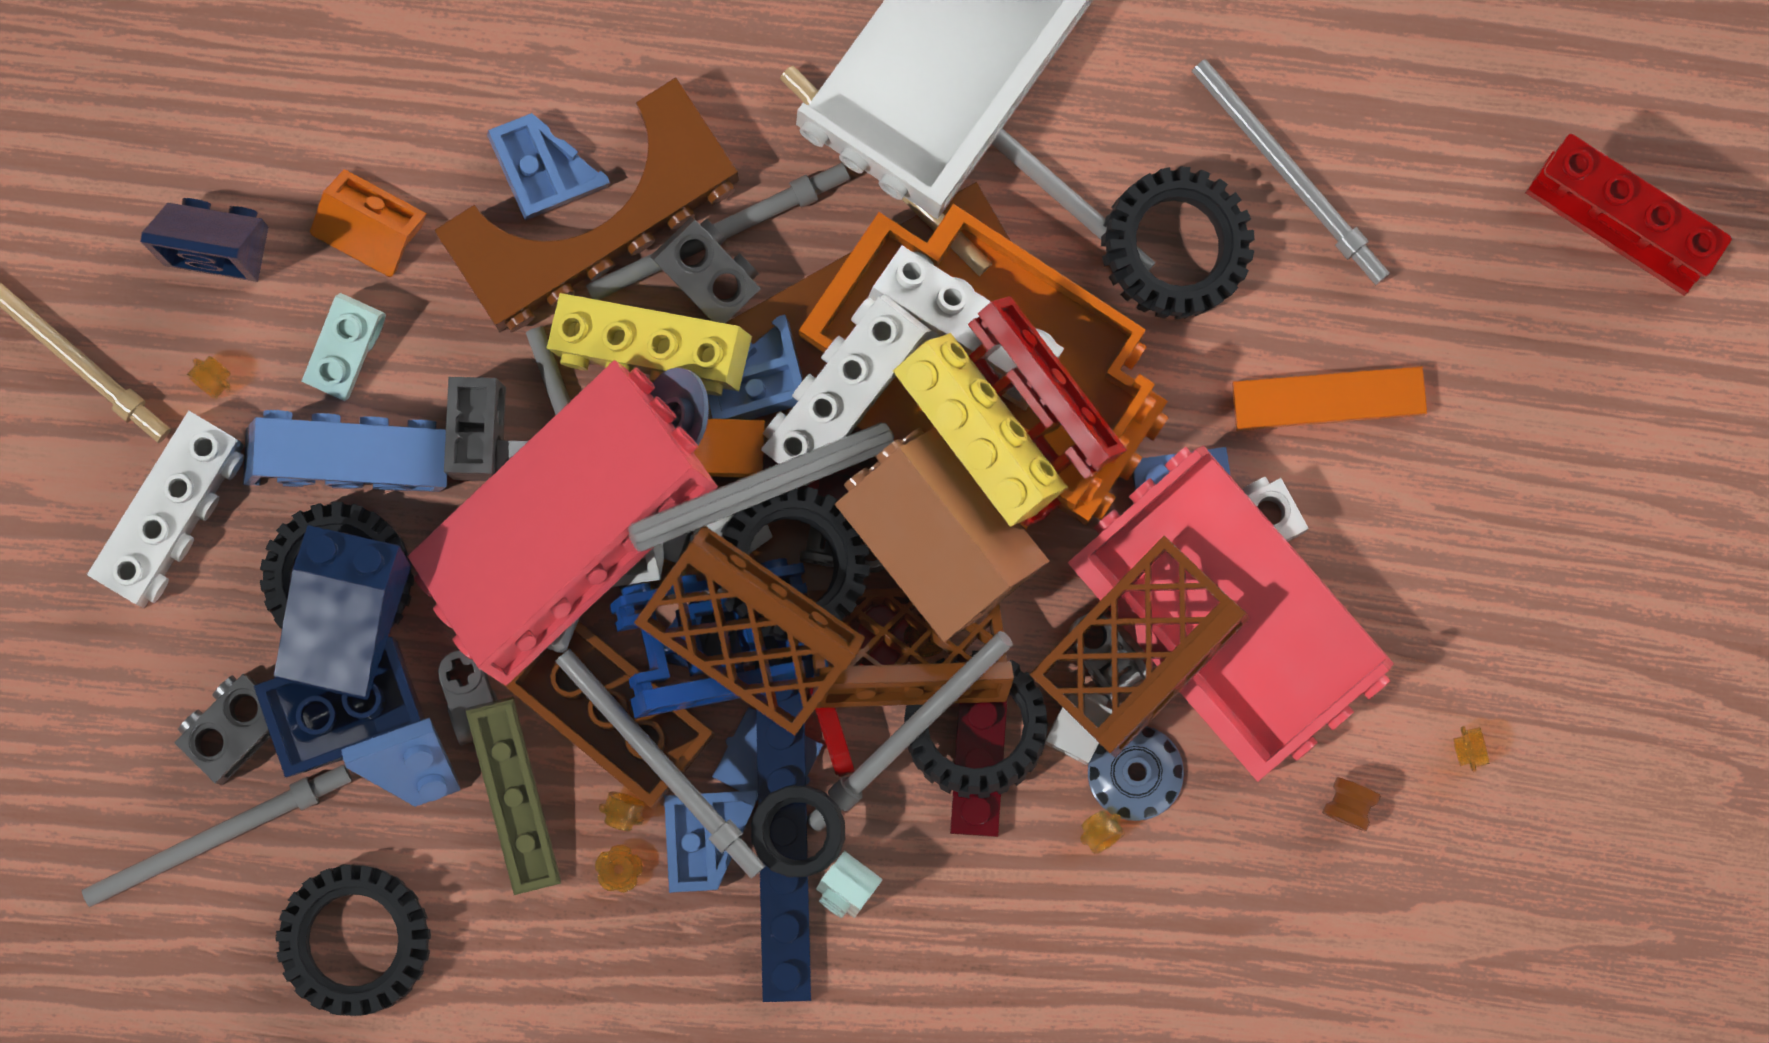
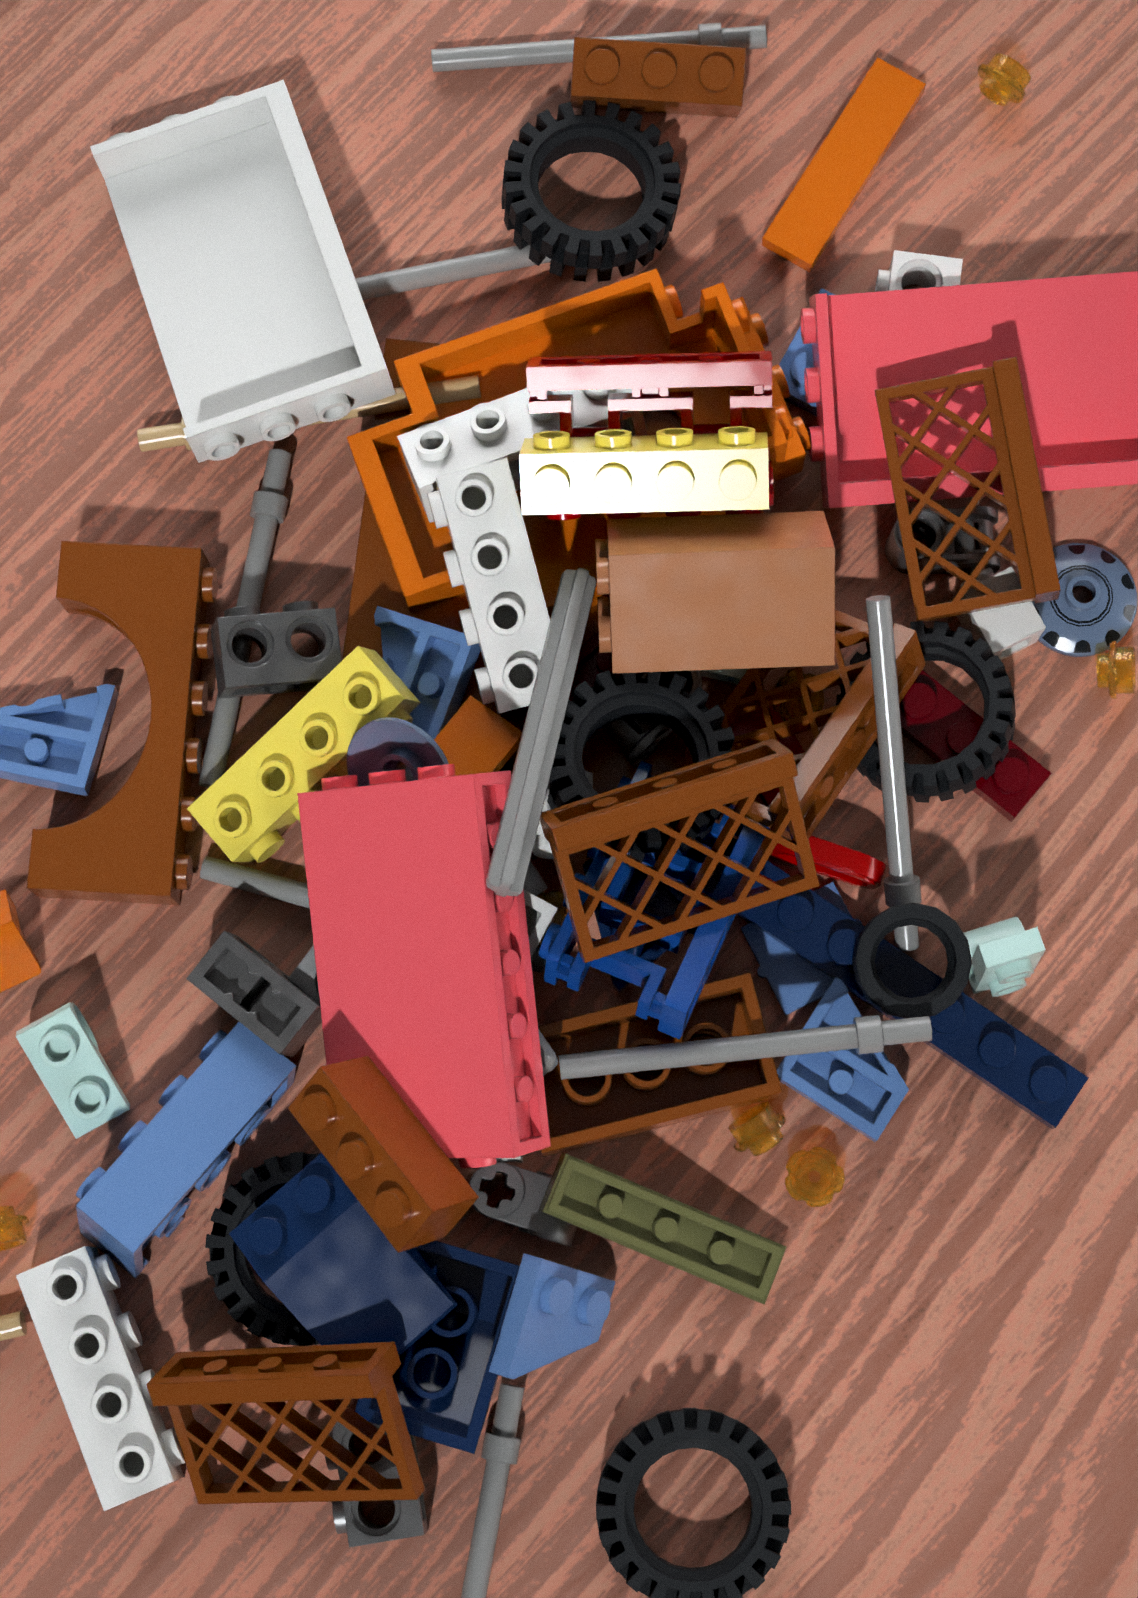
camera: 45 degrees left, 5 degrees down
(239, 623) = (291, 1375): none -> dark orange fence
(425, 583) = (382, 1153): none -> dark orange brick
(1290, 228) = (658, 76): none -> dark orange brick
(1469, 464) = (1003, 80): none -> clear yellow plate

